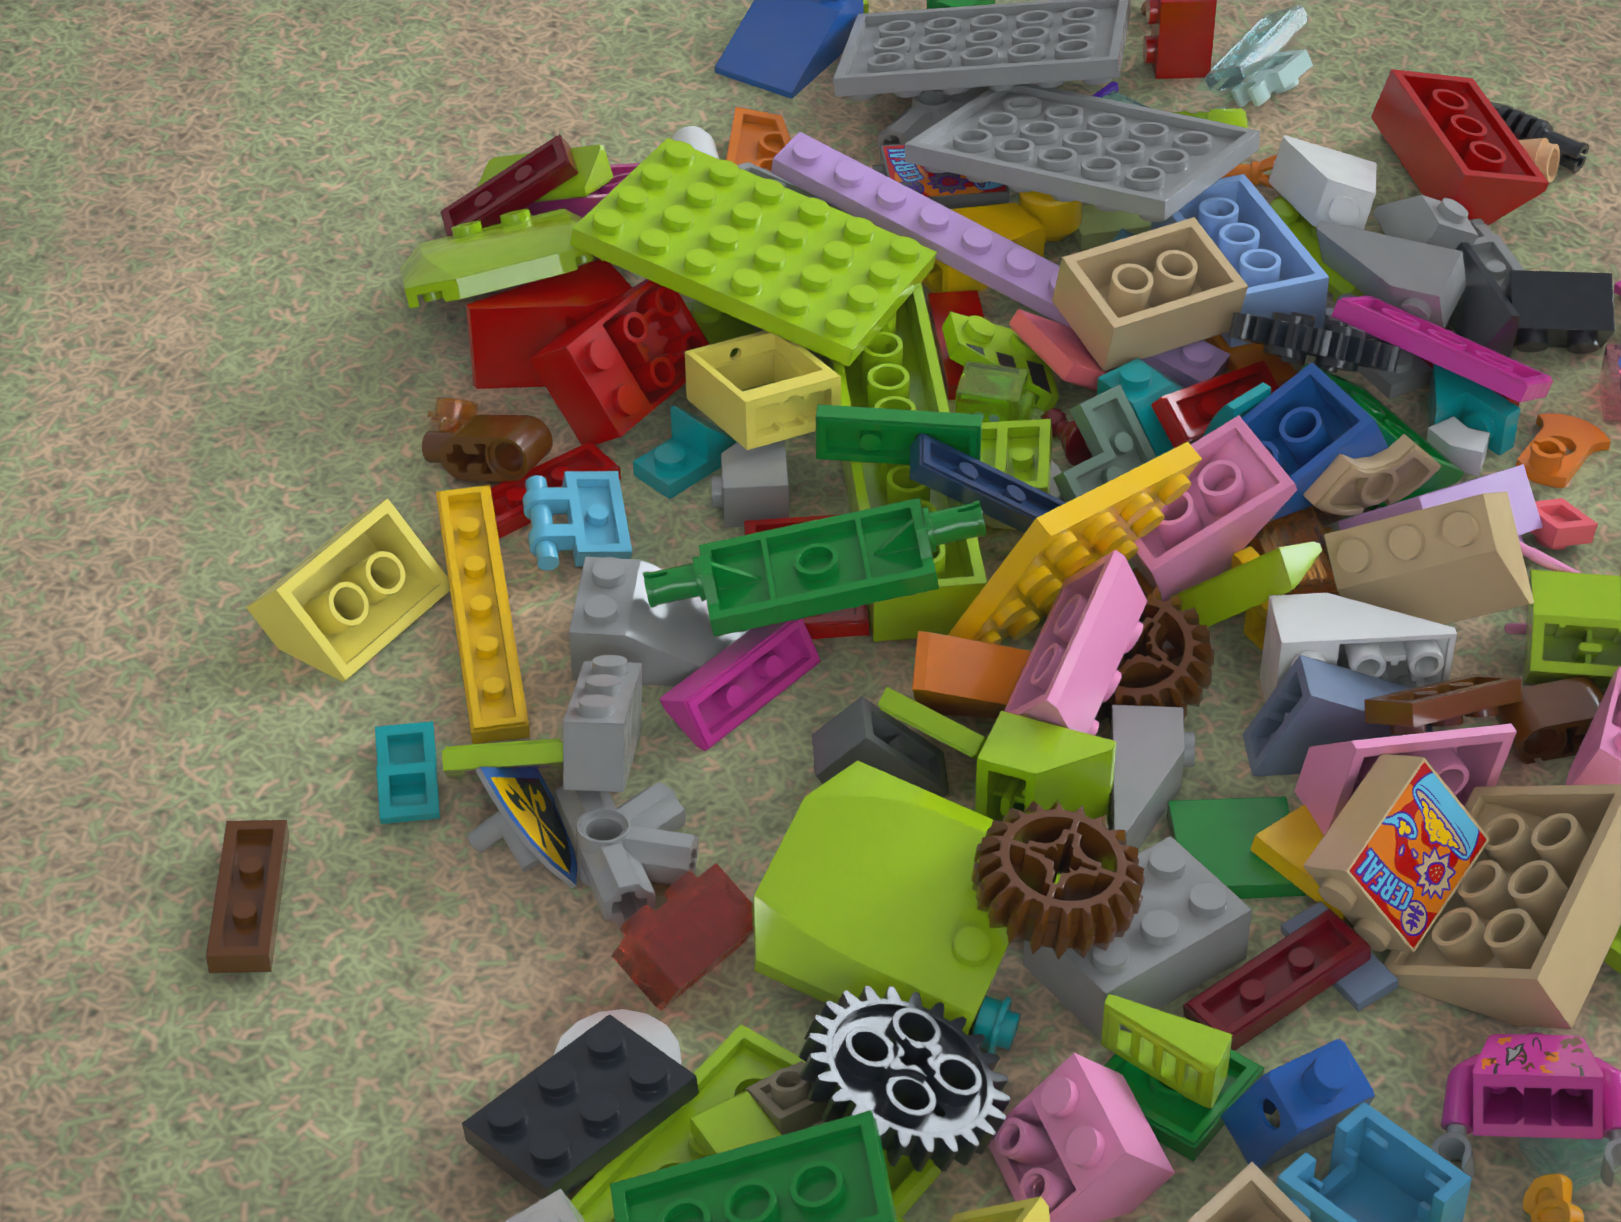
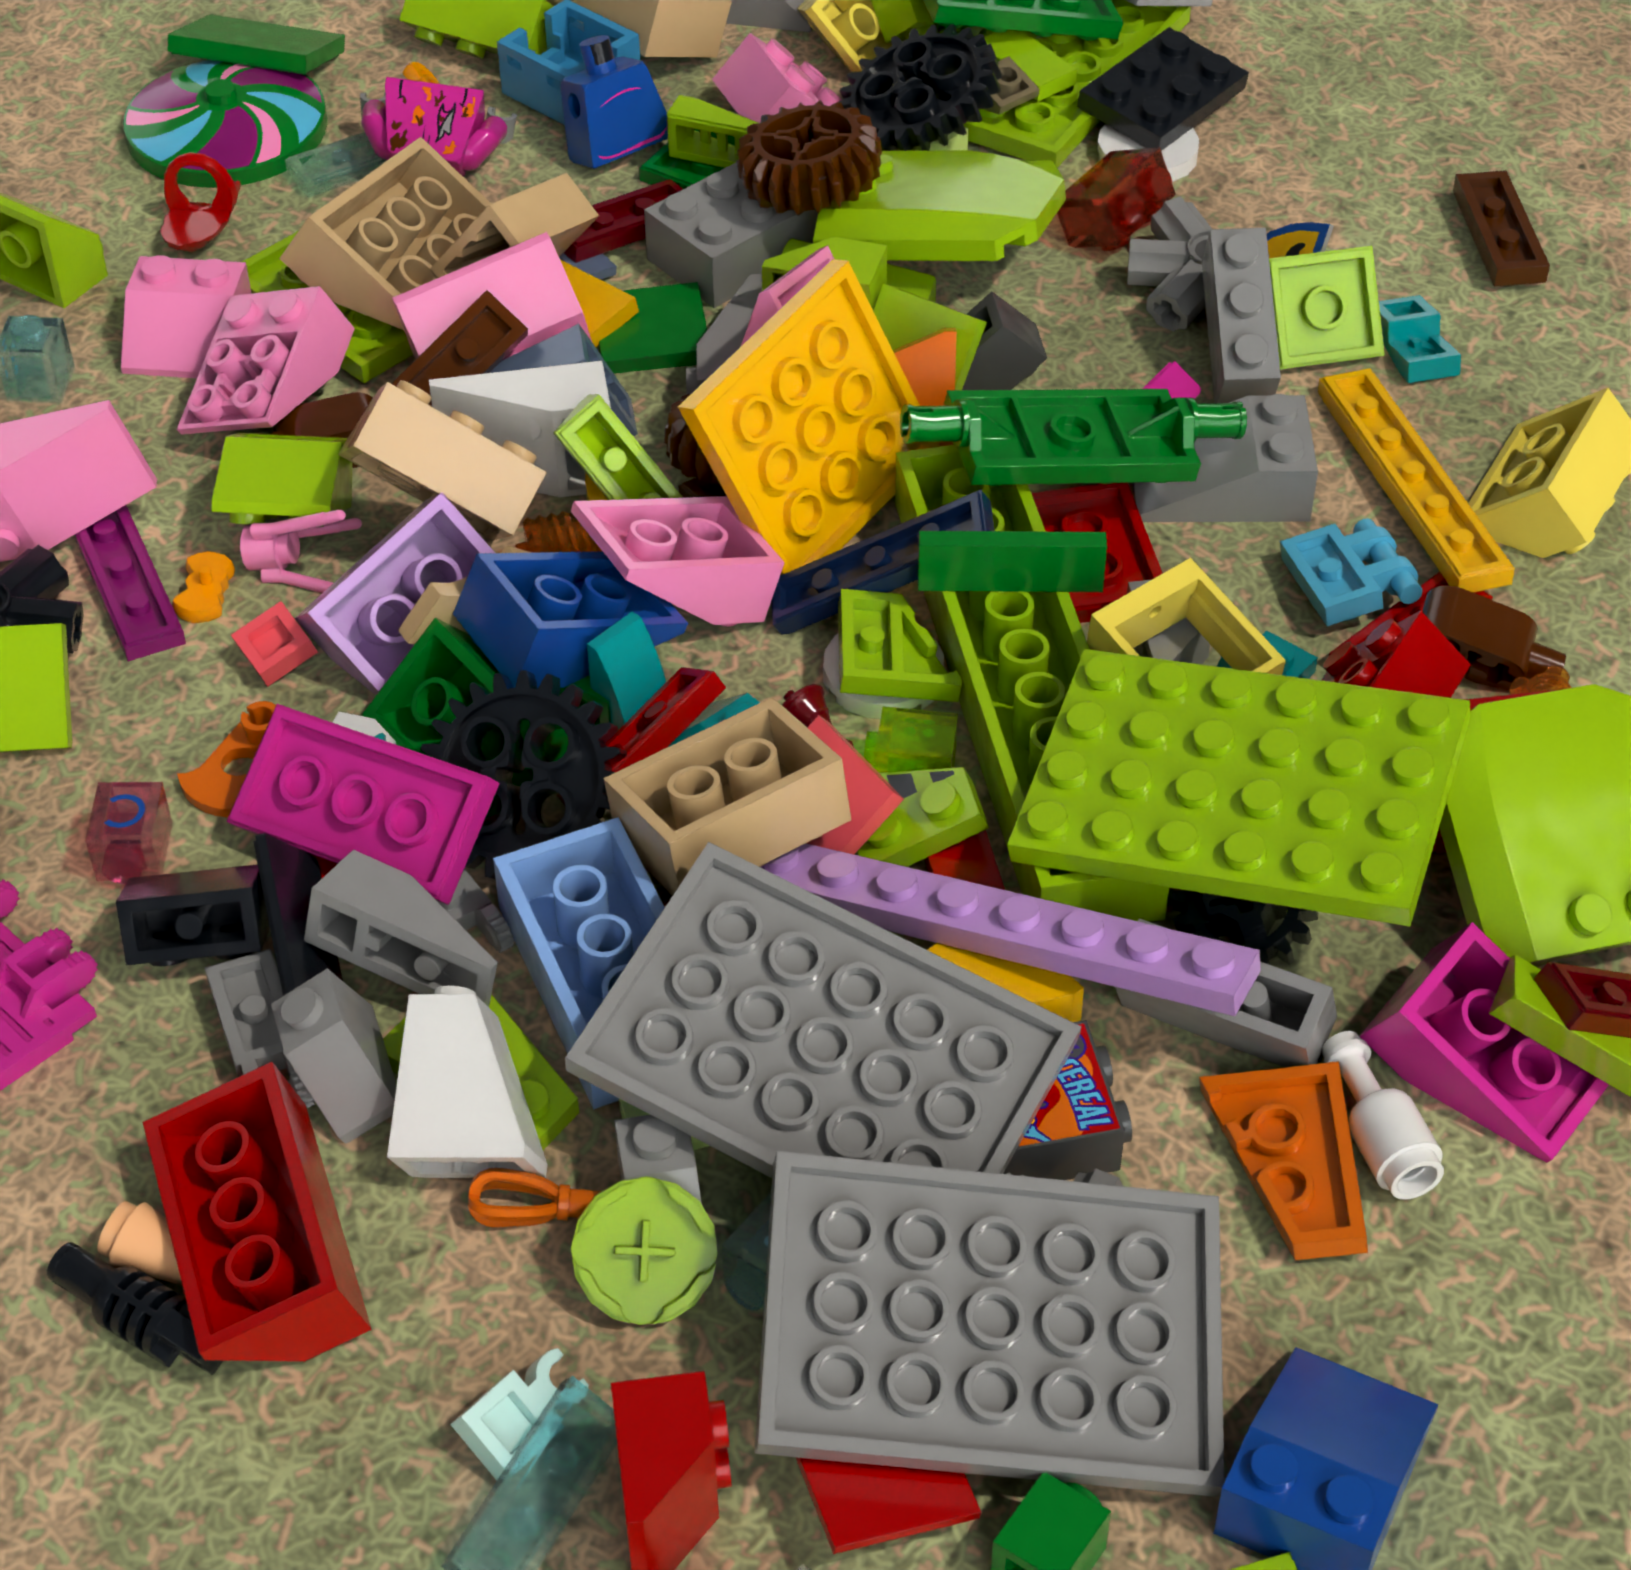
camera: 175 degrees right, 5 degrees up
(1113, 440) = (779, 663): sand green plate -> none

